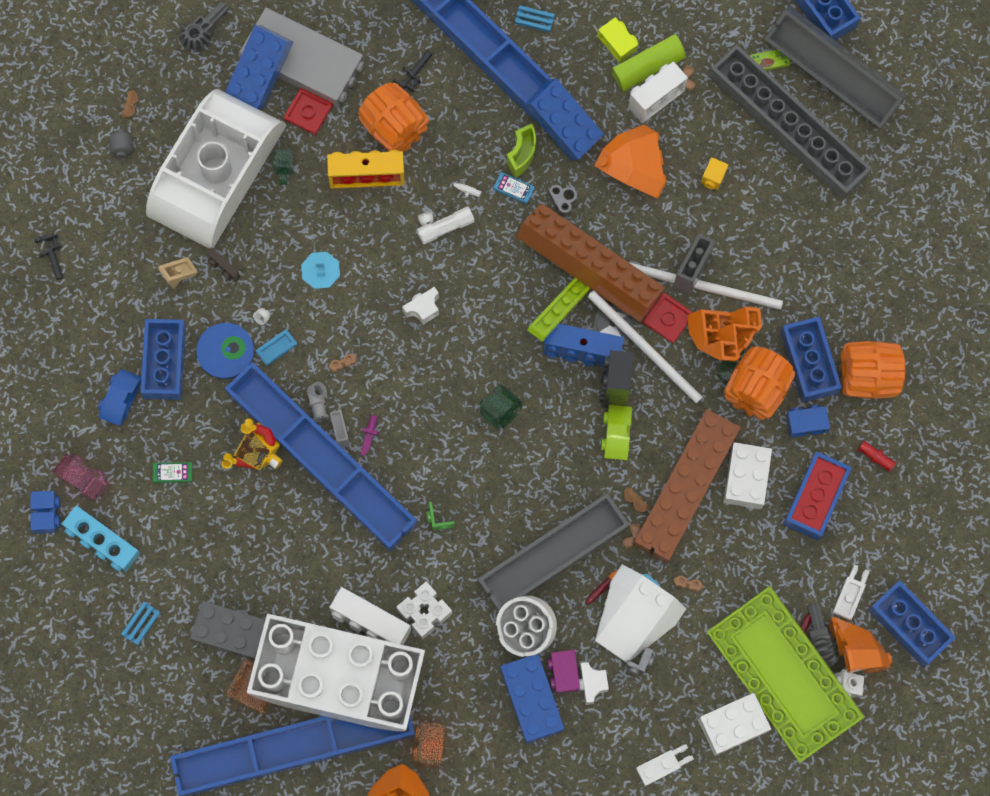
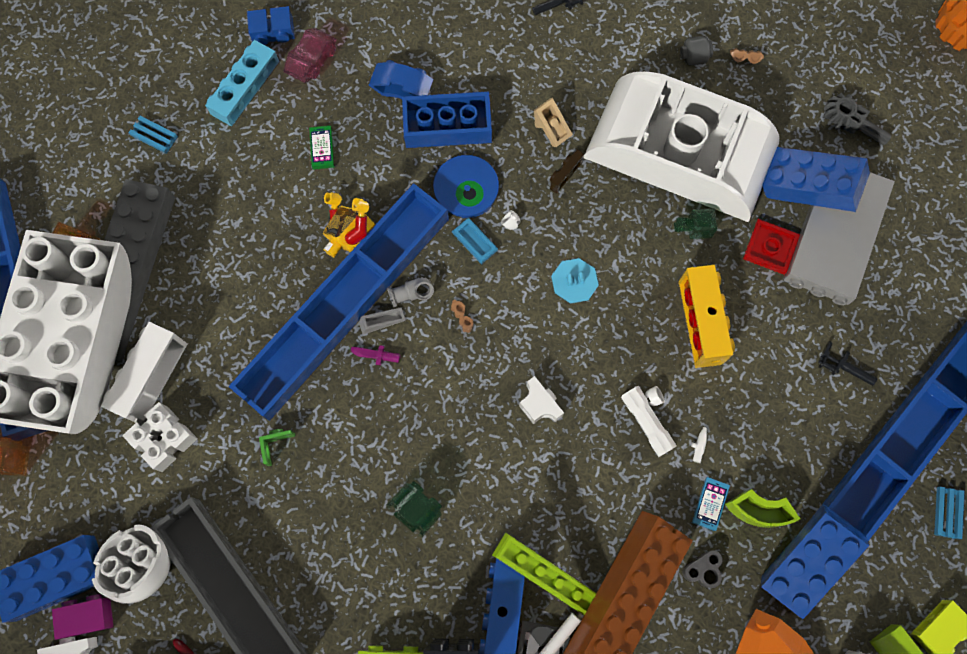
camera: 90 degrees right, 0 degrees up
(393, 117) = (778, 341): orange wheel -> none

